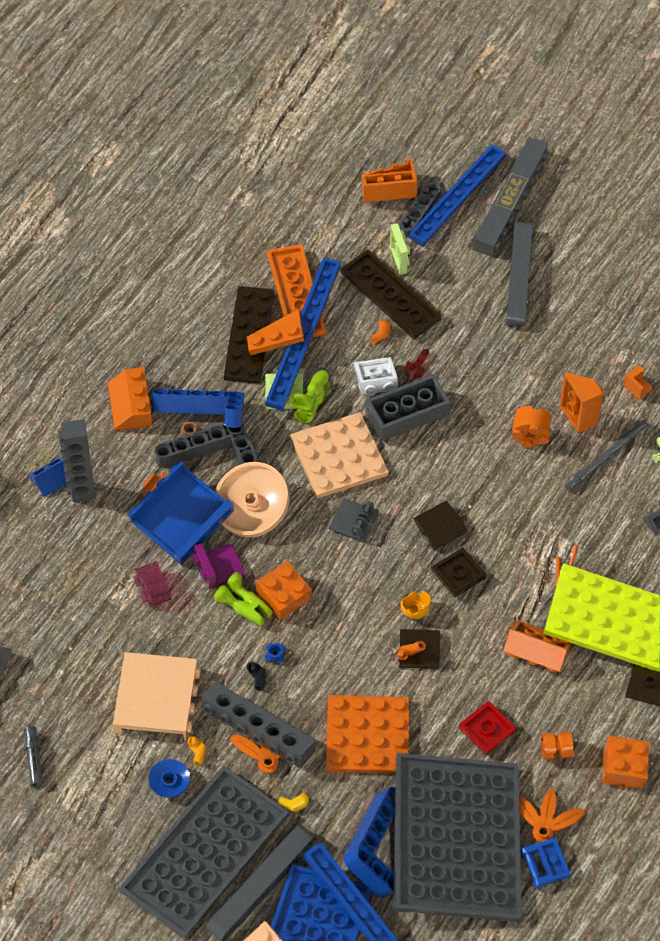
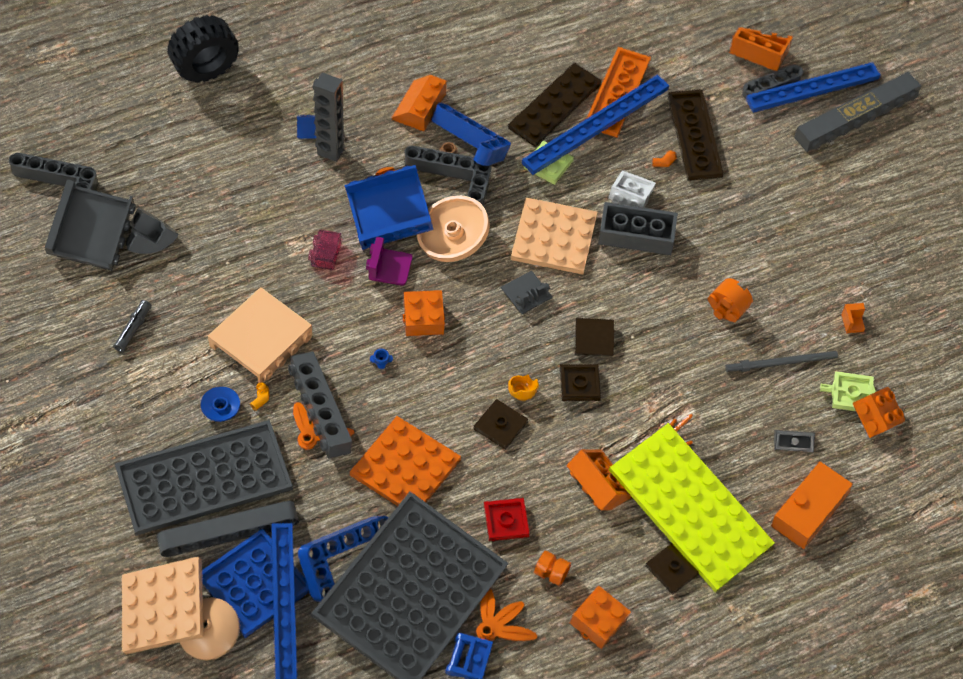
camera: 30 degrees right, 0 degrees up
(250, 600) = (383, 309): lime piece -> none
(258, 673) = (355, 367): black arm -> none
(278, 334) = (573, 113): orange wing -> none
(295, 804) = (304, 485): yellow arm -> none
(309, 402) = (565, 179): lime piece -> none
(399, 248) = (728, 101): yellowish green plate -> none
(410, 649) = (488, 418): orange arm -> none
(417, 365) = (674, 201): clear red bar -> none
(519, 274) = (817, 176): dark grey beam -> none
(581, 401) = (787, 303): orange slope -> none

